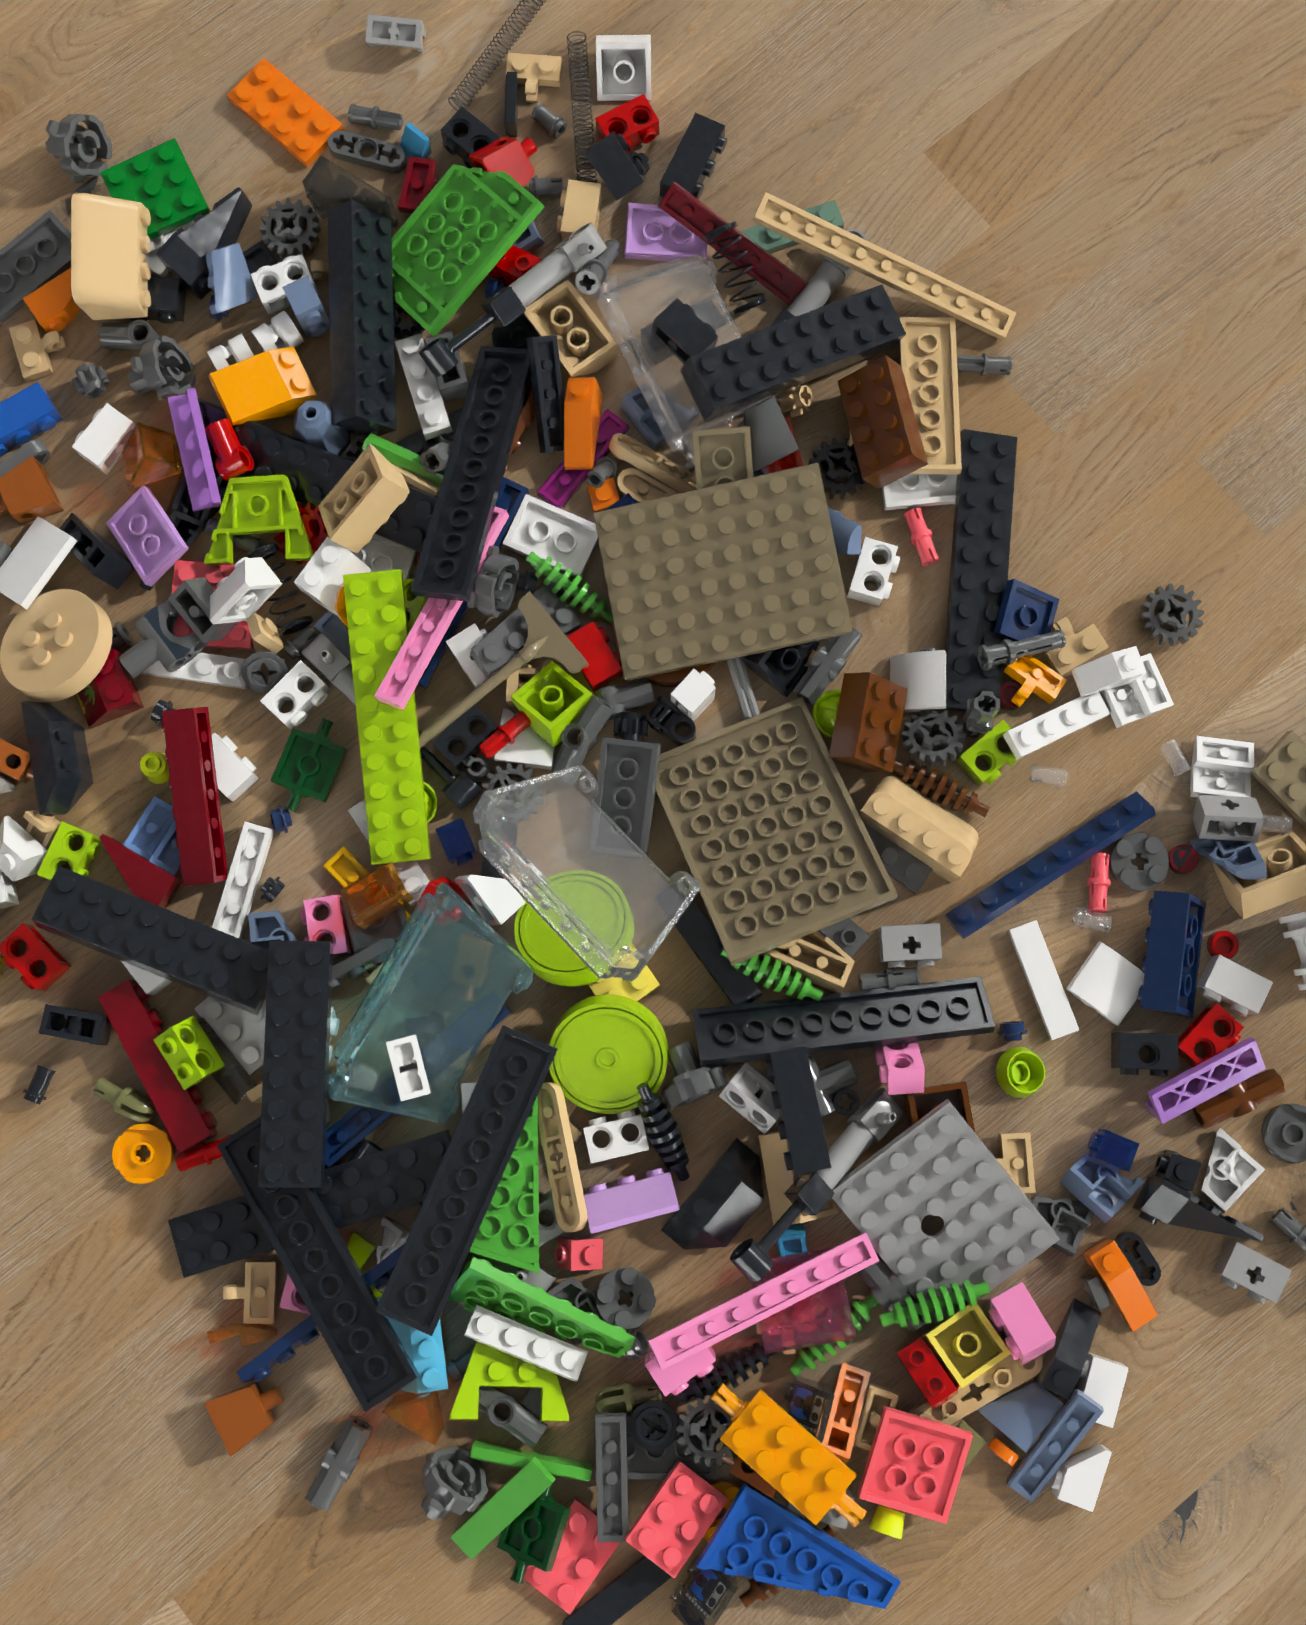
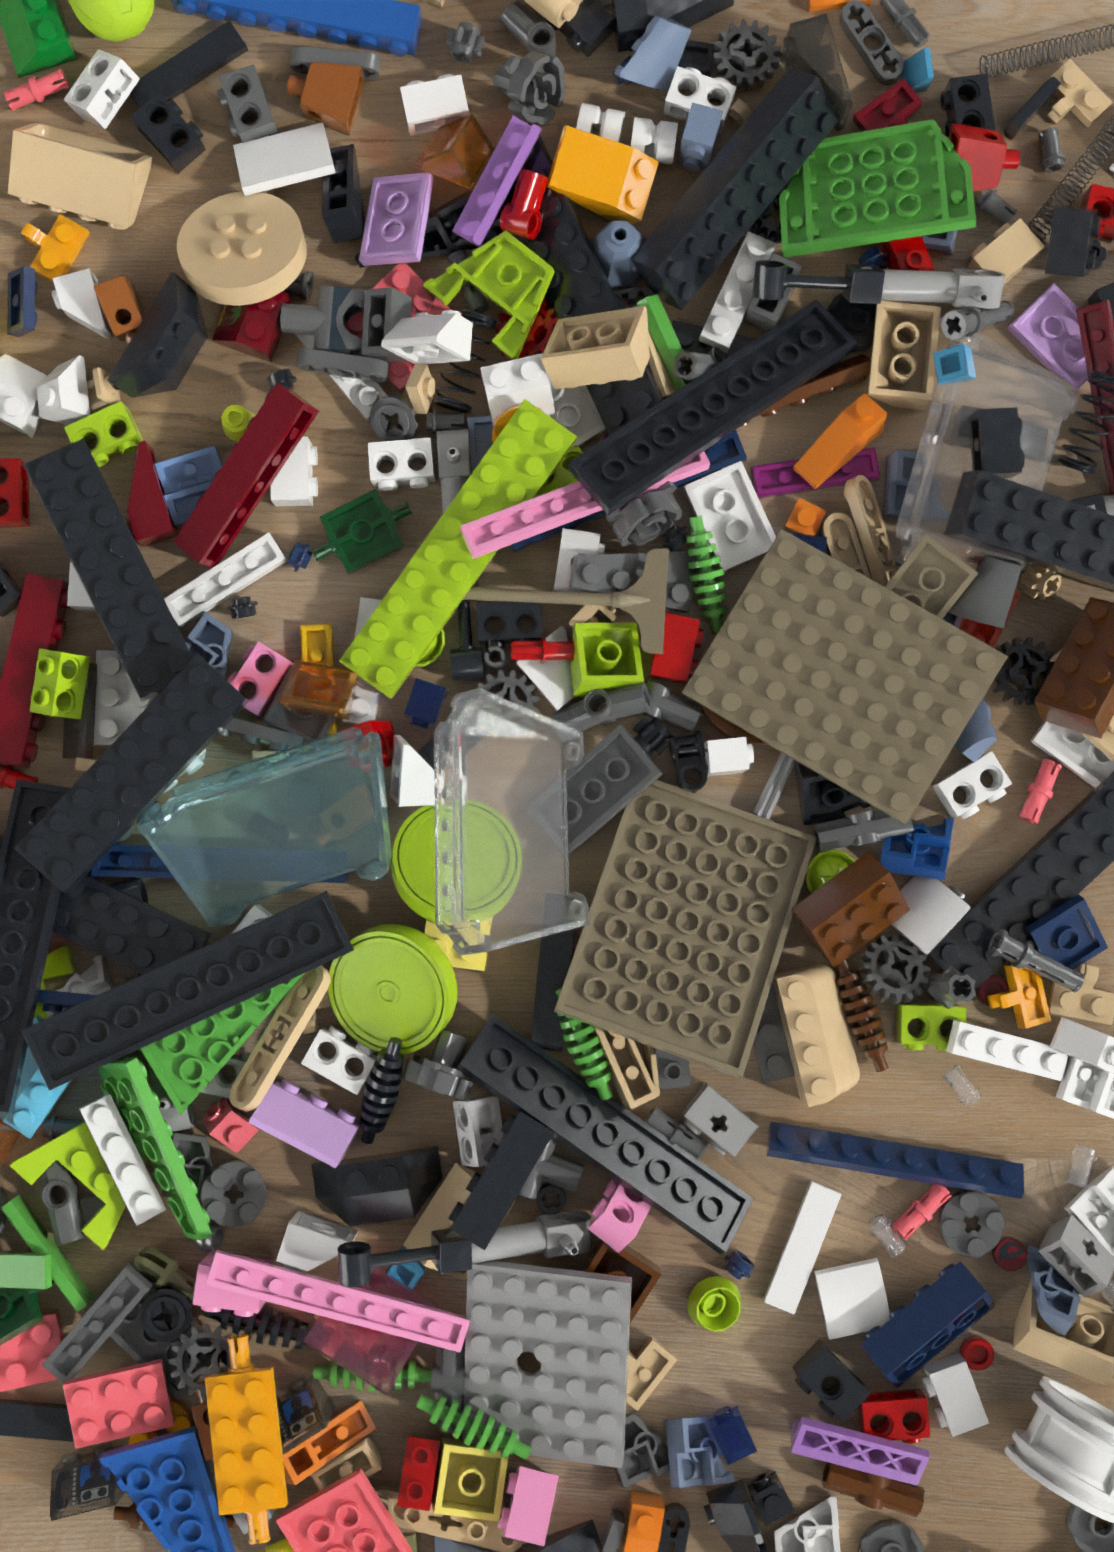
camera: 40 degrees right, 5 degrees up
(196, 663) = (342, 365): none -> dark grey beam
(408, 1067) = (220, 856): white brick -> none
(547, 392) = (836, 389): black plate -> none
(605, 468) = (828, 498): dark grey pin -> none
(610, 307) = (954, 364): none -> dark azure slope
(709, 1280) = (311, 1241): none -> white slope
(879, 645) = (920, 851): none -> blue slope

